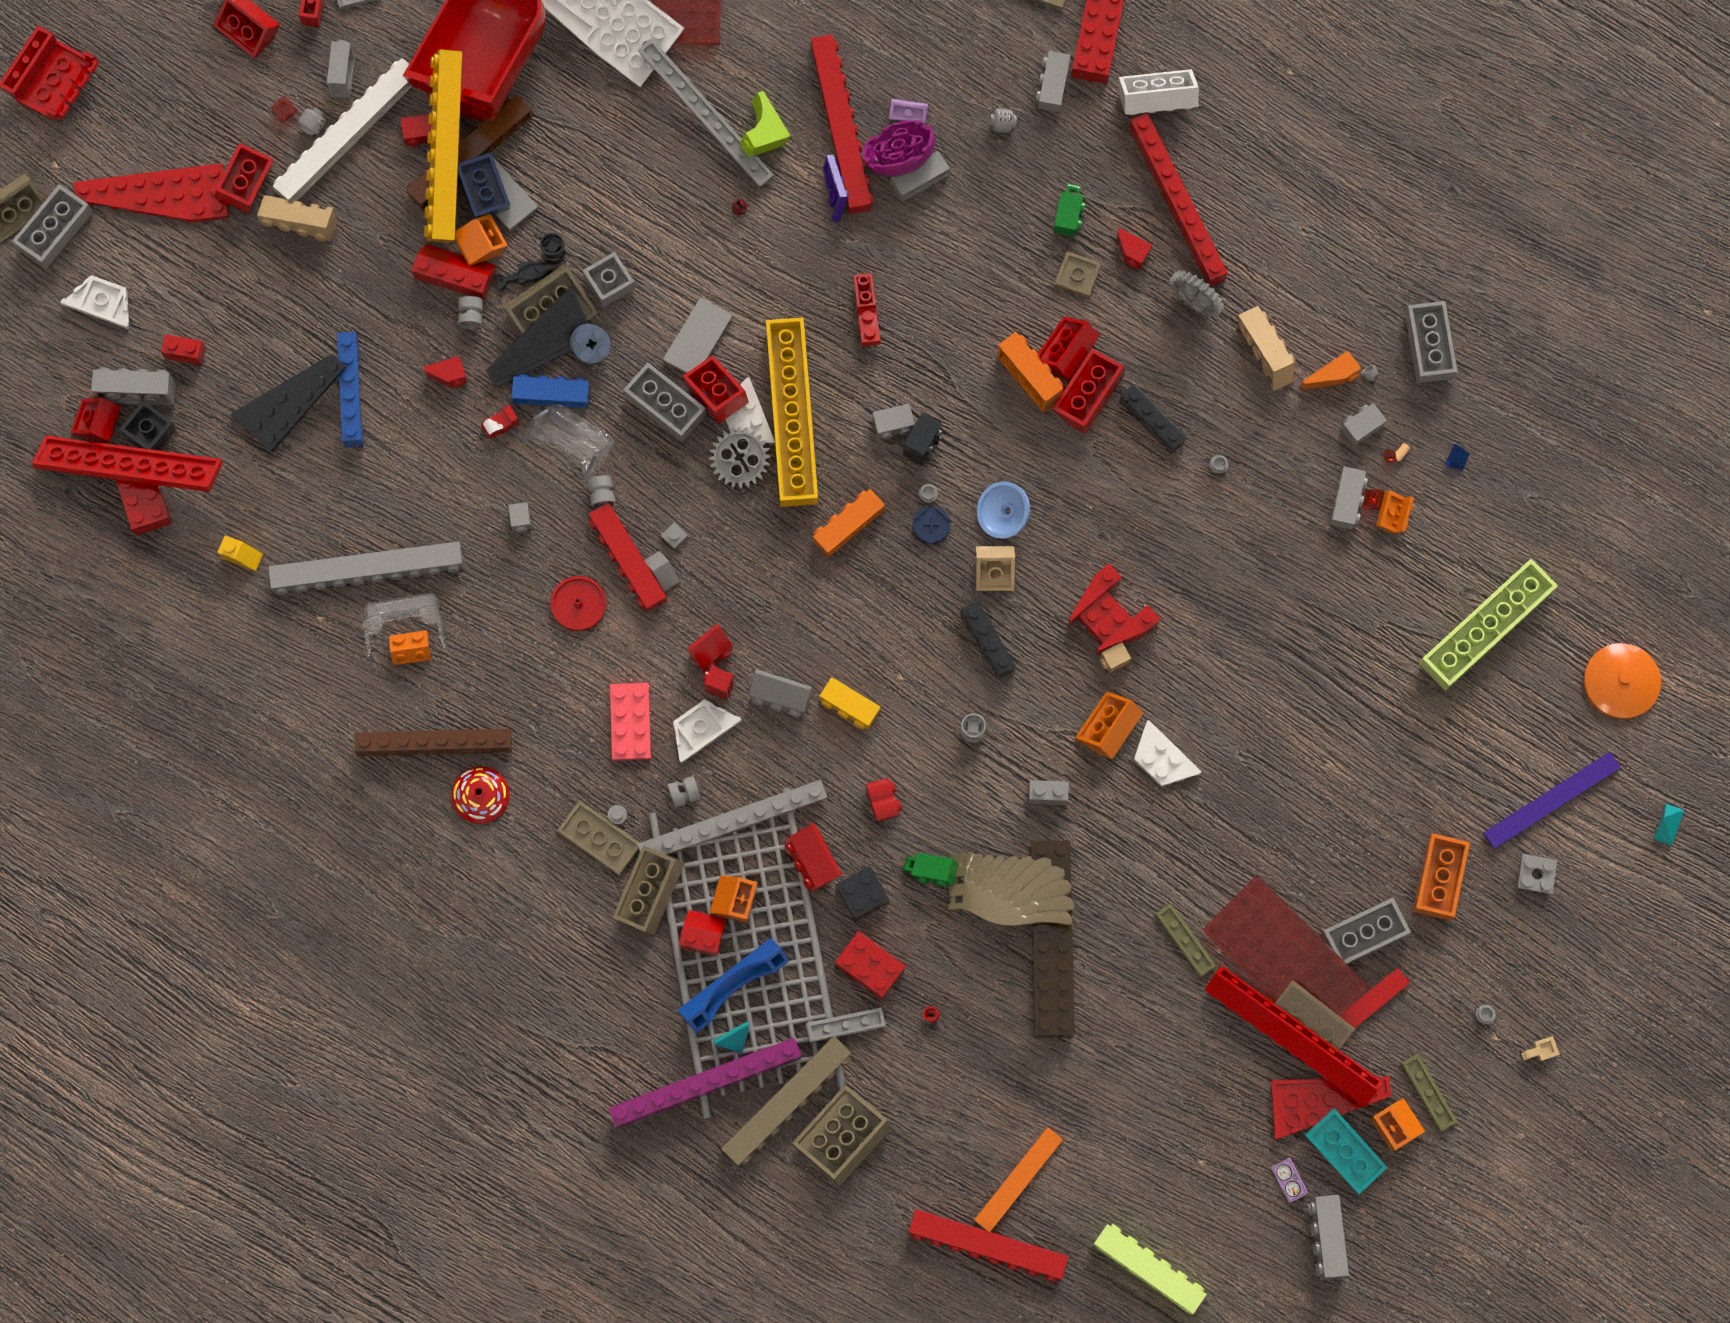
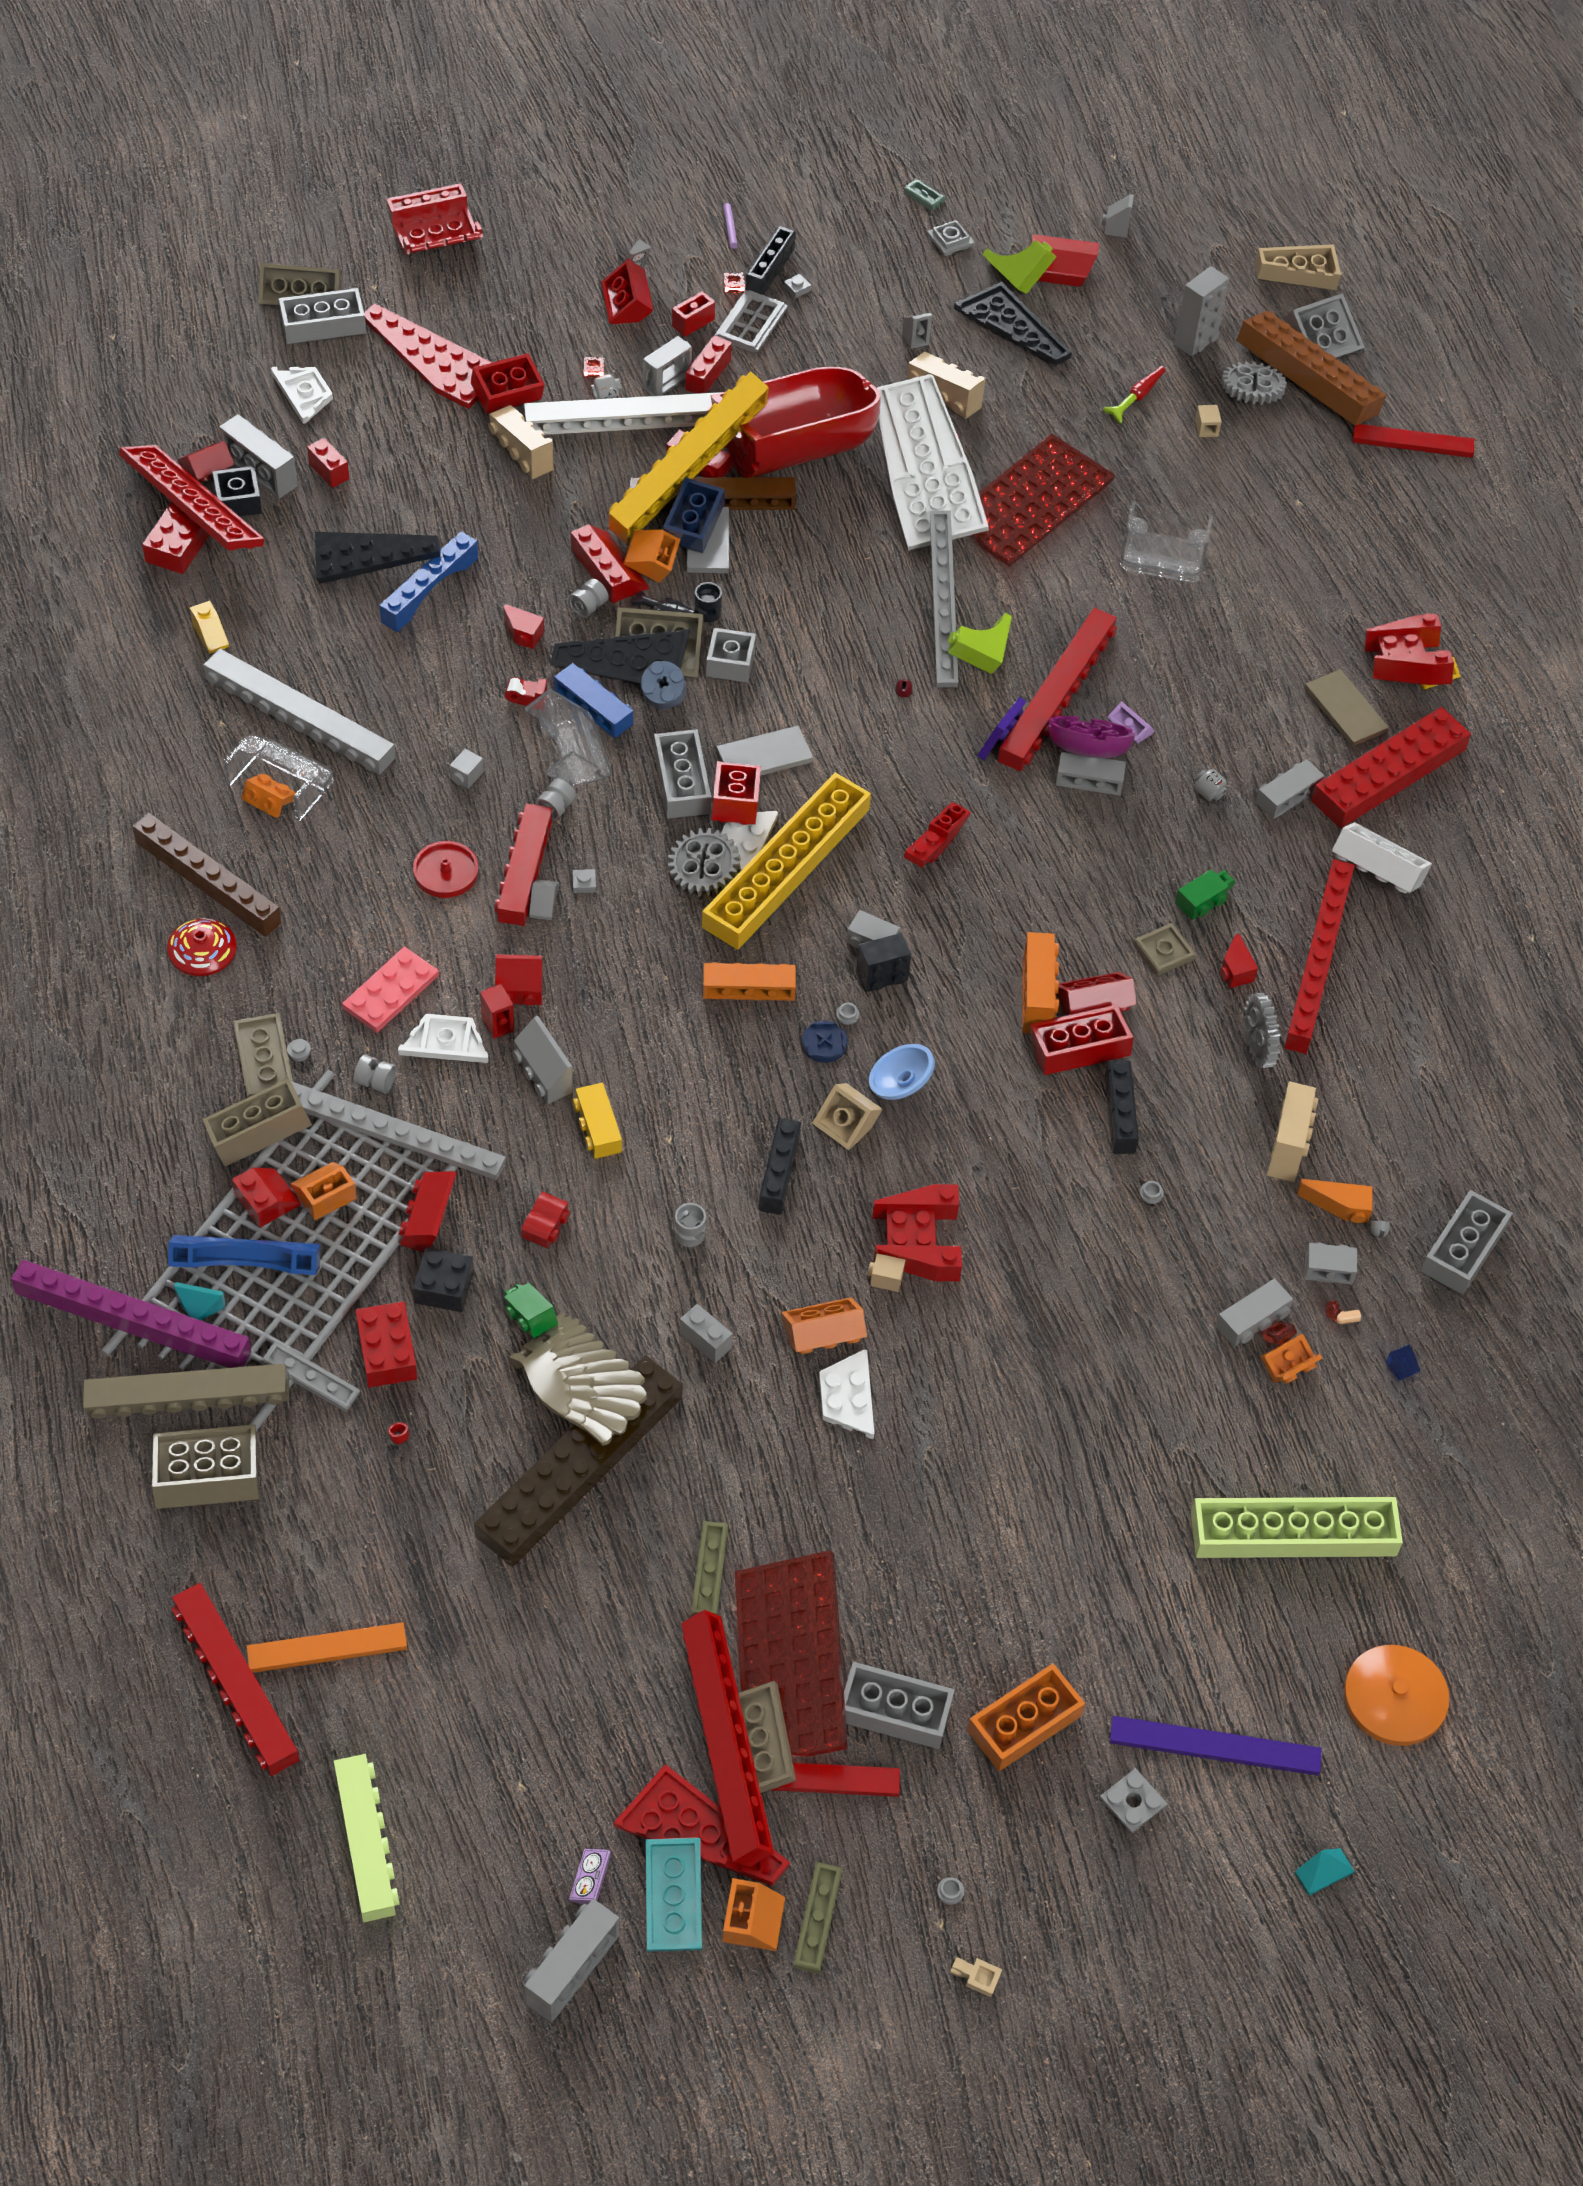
camera: 40 degrees right, 20 degrees down
(364, 42) = (708, 365): none -> red brick

